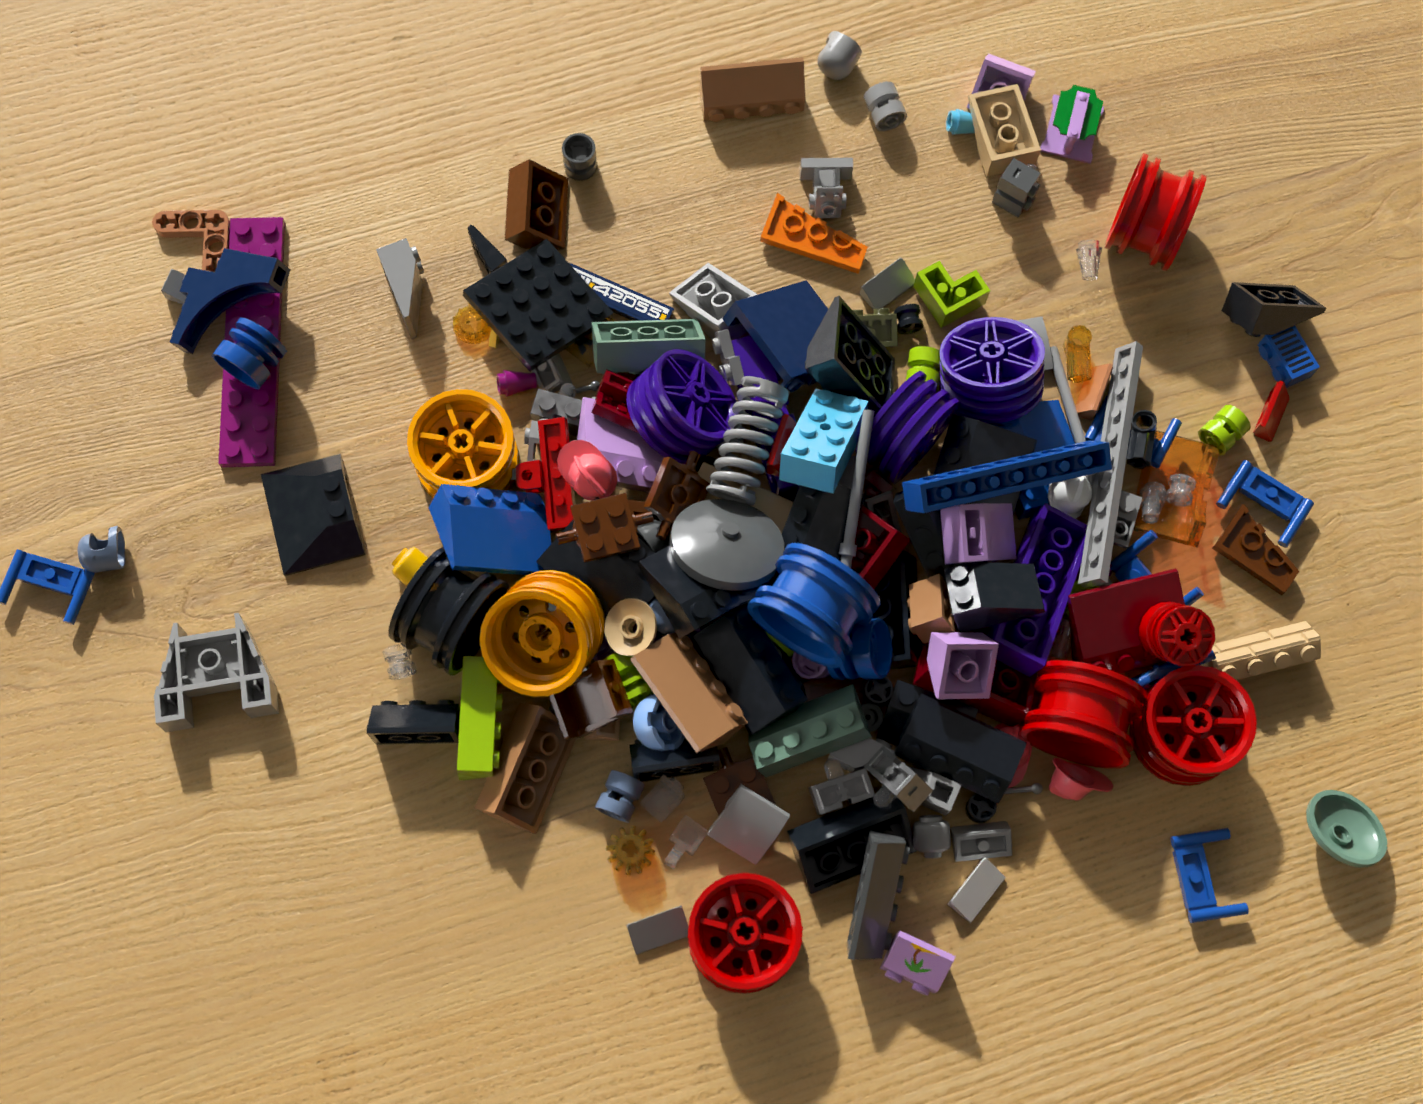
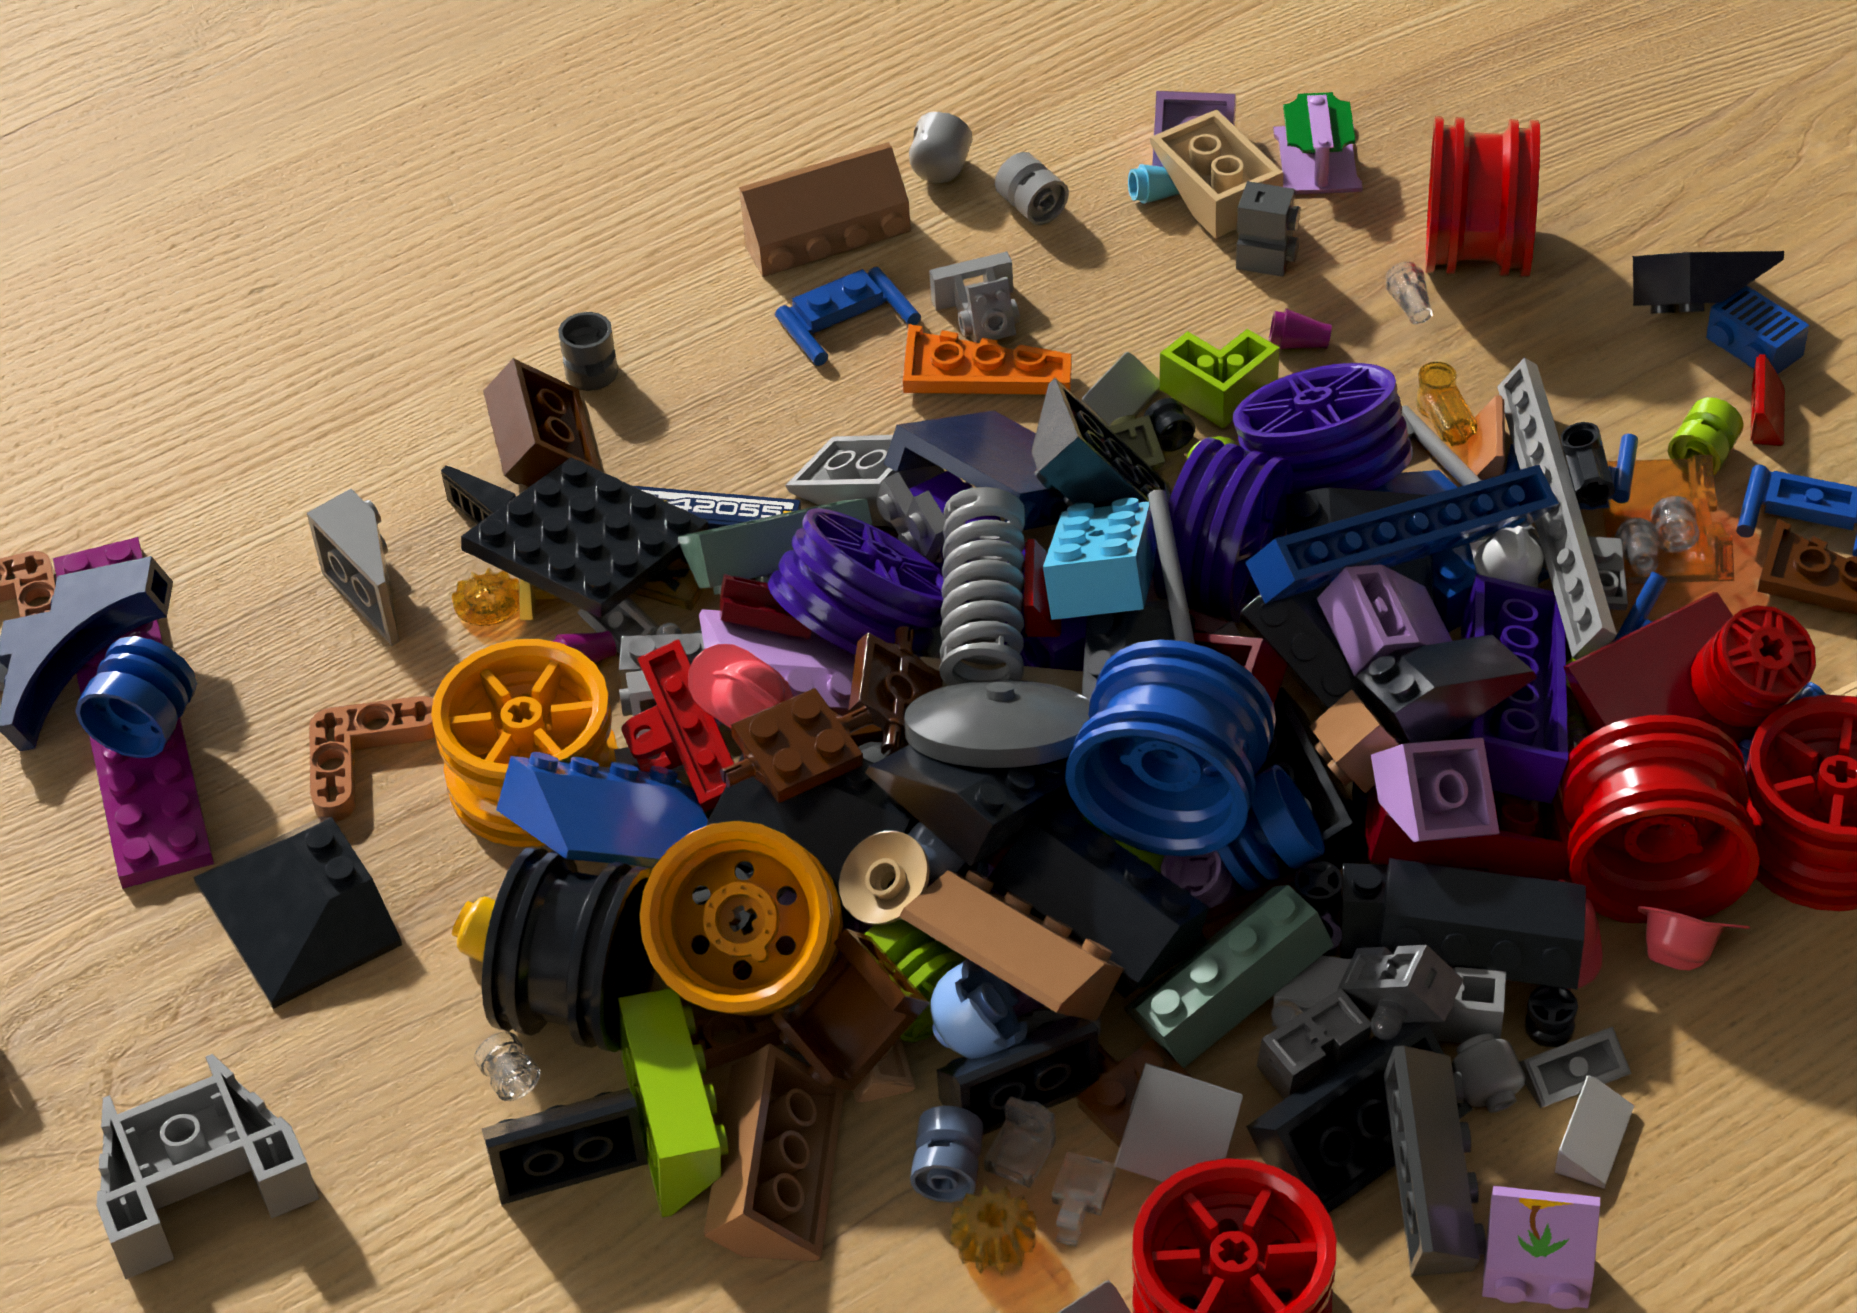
camera: 10 degrees left, 25 degrees down
(372, 401) = (352, 735): none -> nougat beam
(740, 159) = (839, 302): none -> blue plate
(1009, 268) = (1297, 331): none -> magenta cone
(1035, 788) = (1628, 971): light grey hinge -> none

